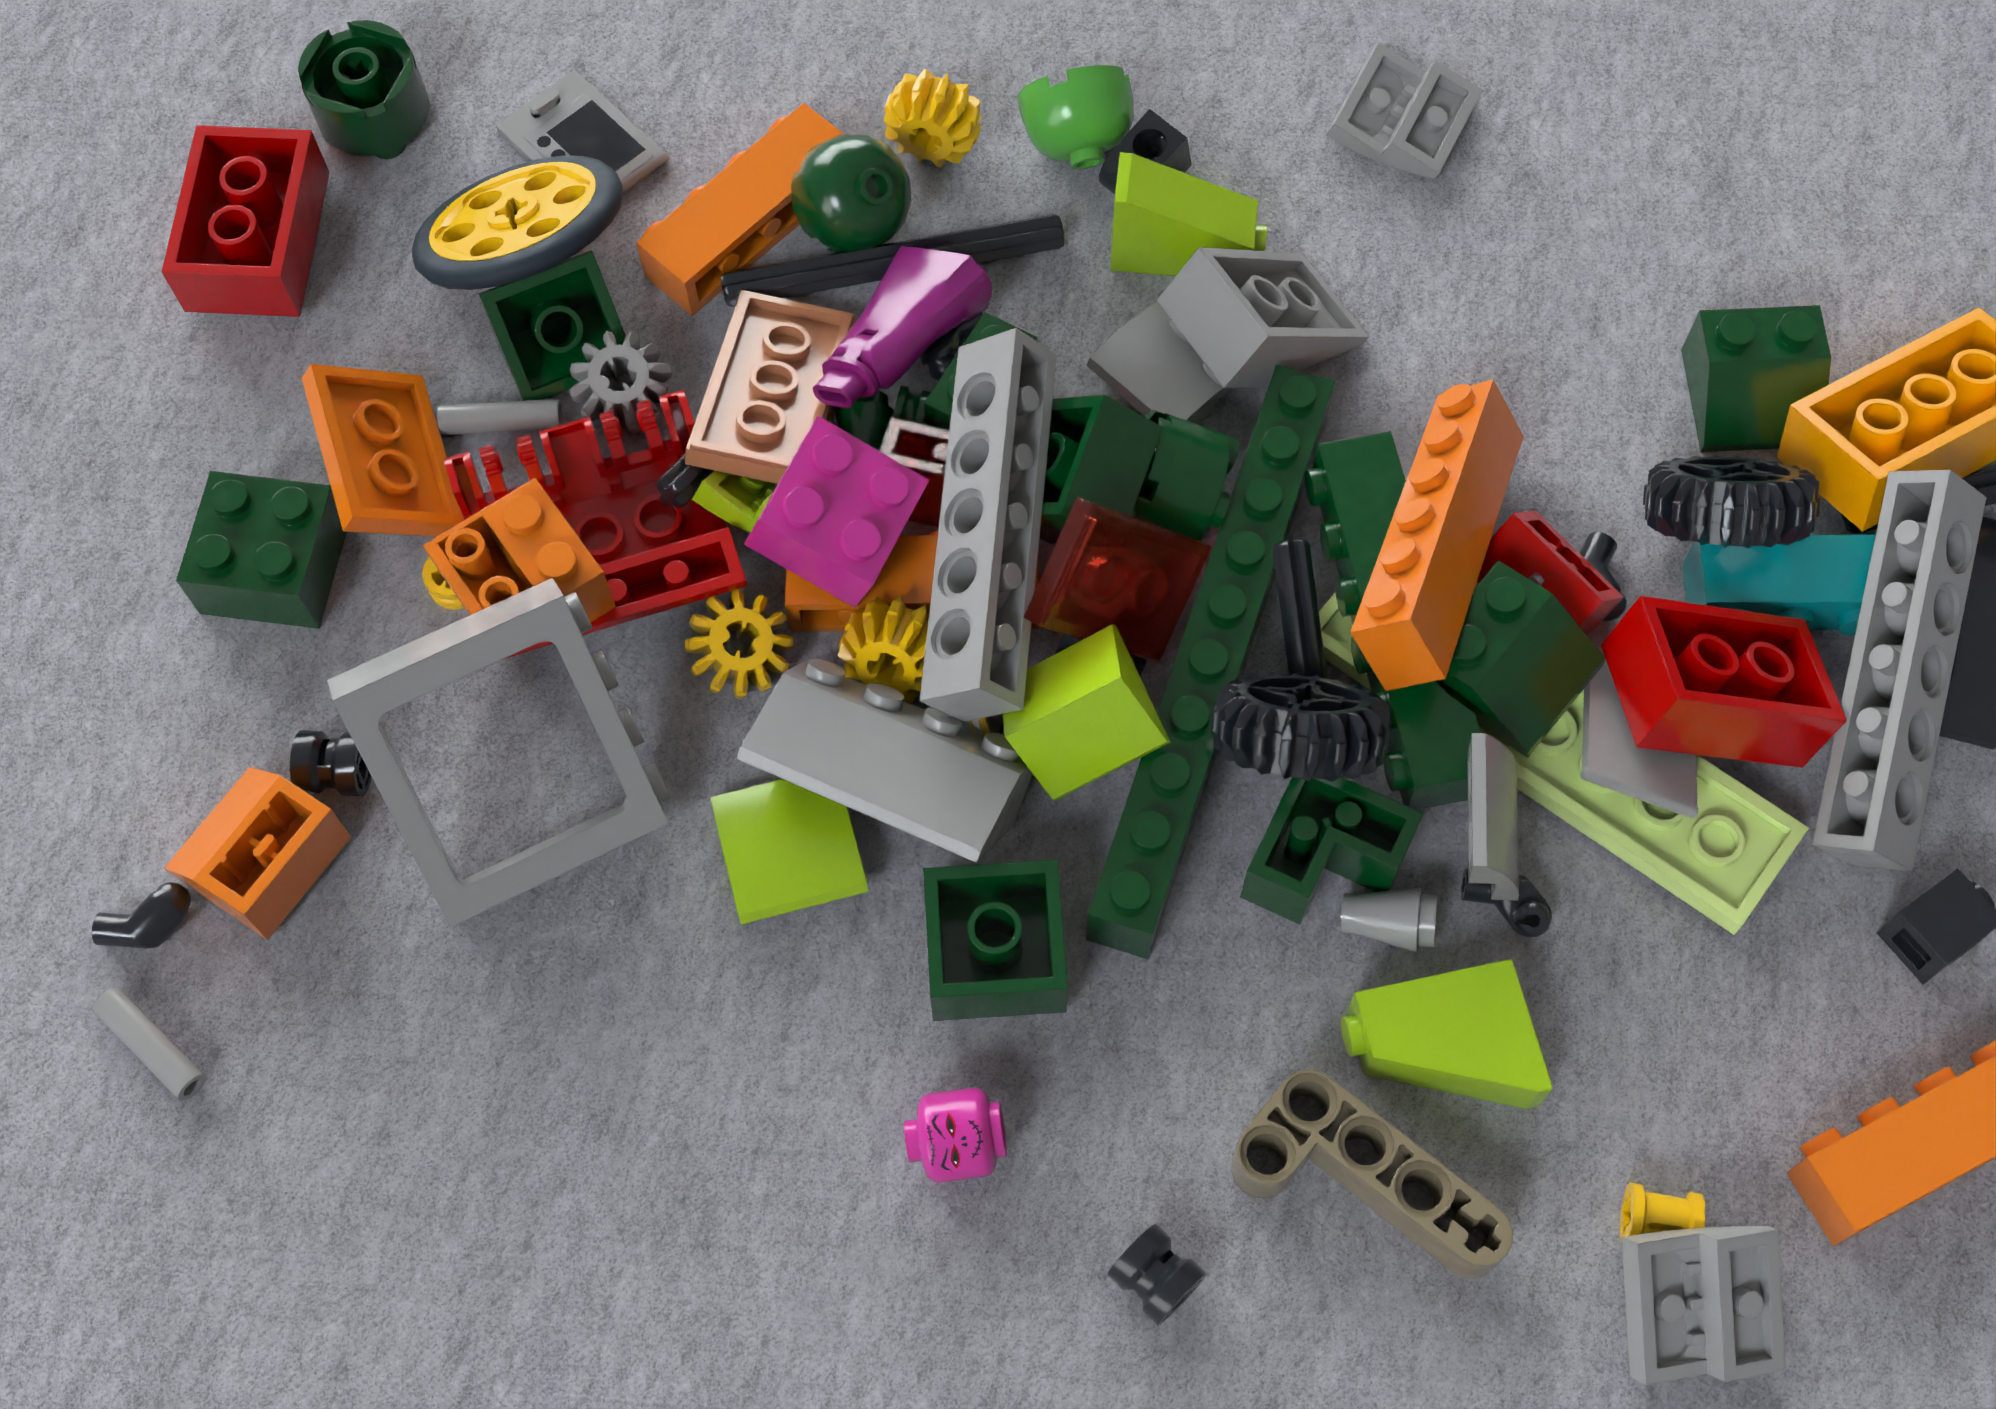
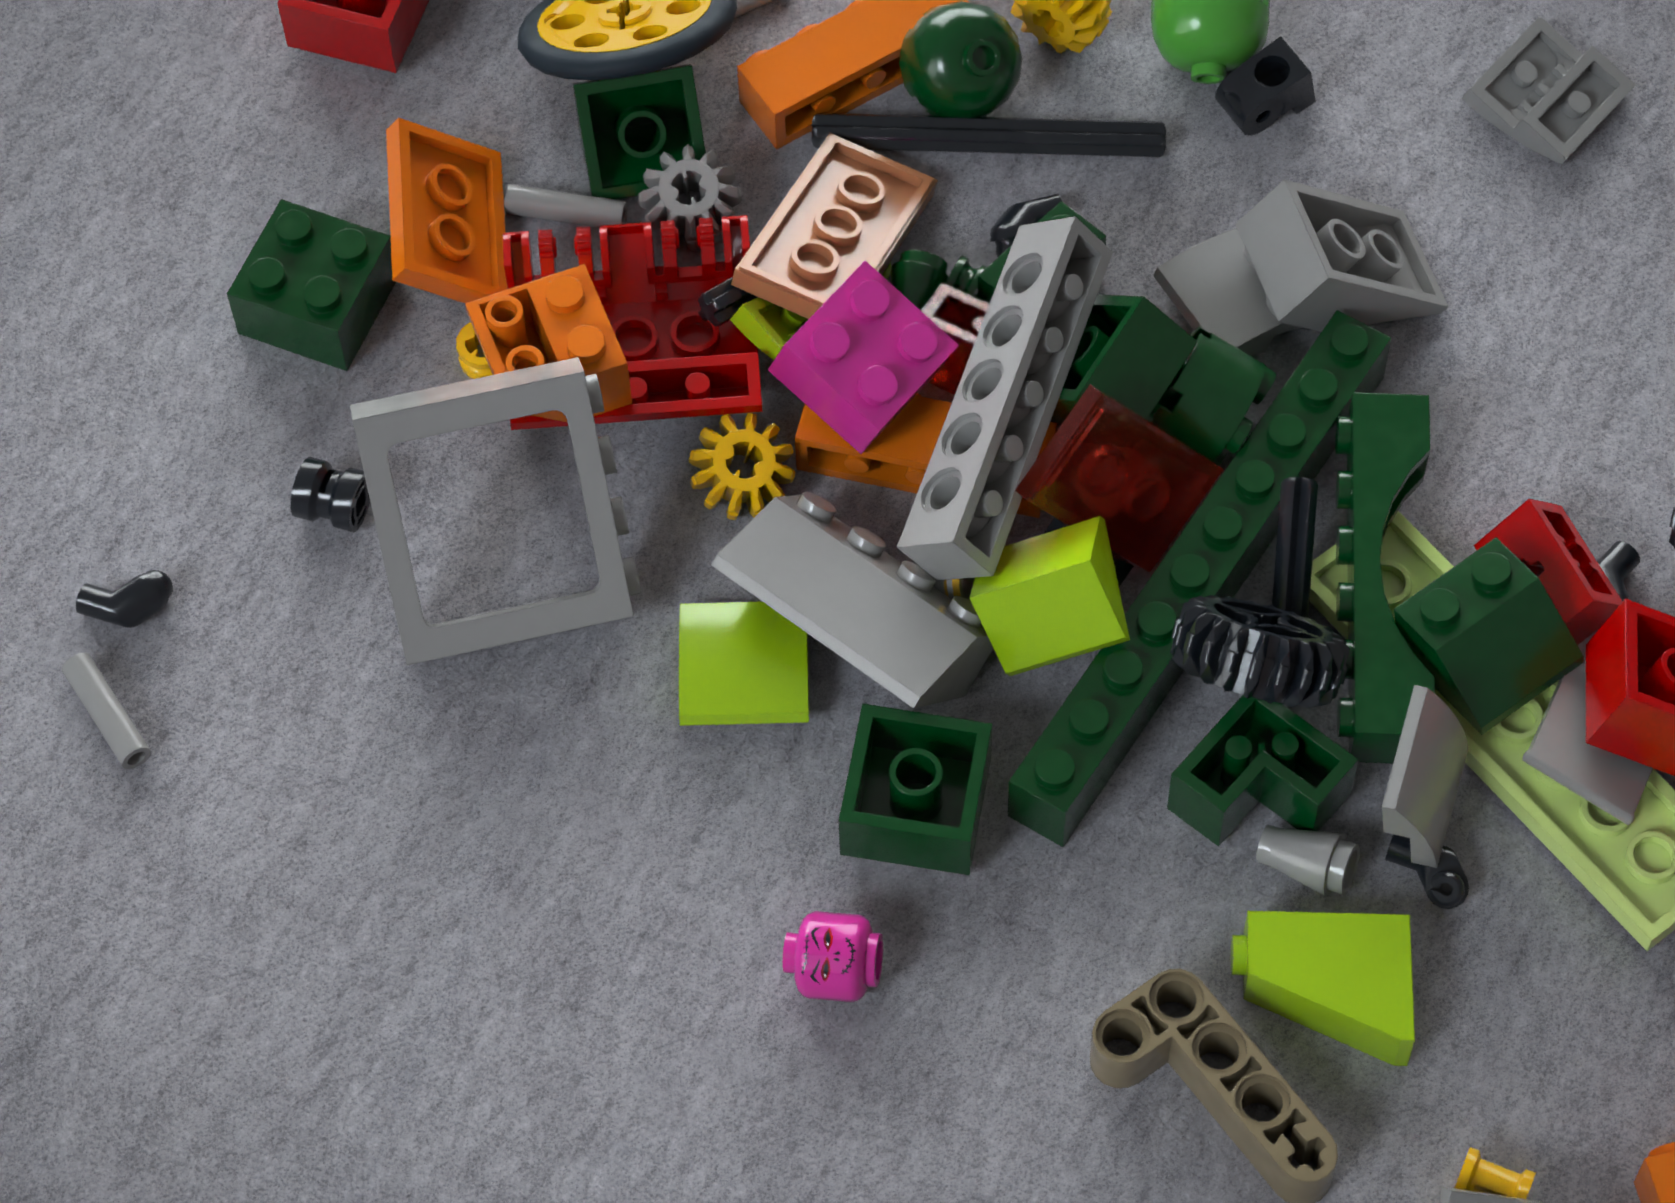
camera: 15 degrees right, 5 degrees down
(260, 850) = (248, 558): orange slope -> none
(886, 646) = (880, 495): yellow gear -> none
(911, 308) = (994, 181): magenta piece -> none
(1156, 1274) = (990, 1124): black wheel -> none
(1170, 214) = (1267, 139): lime slope -> none
(1438, 537) = (1446, 500): orange brick -> none

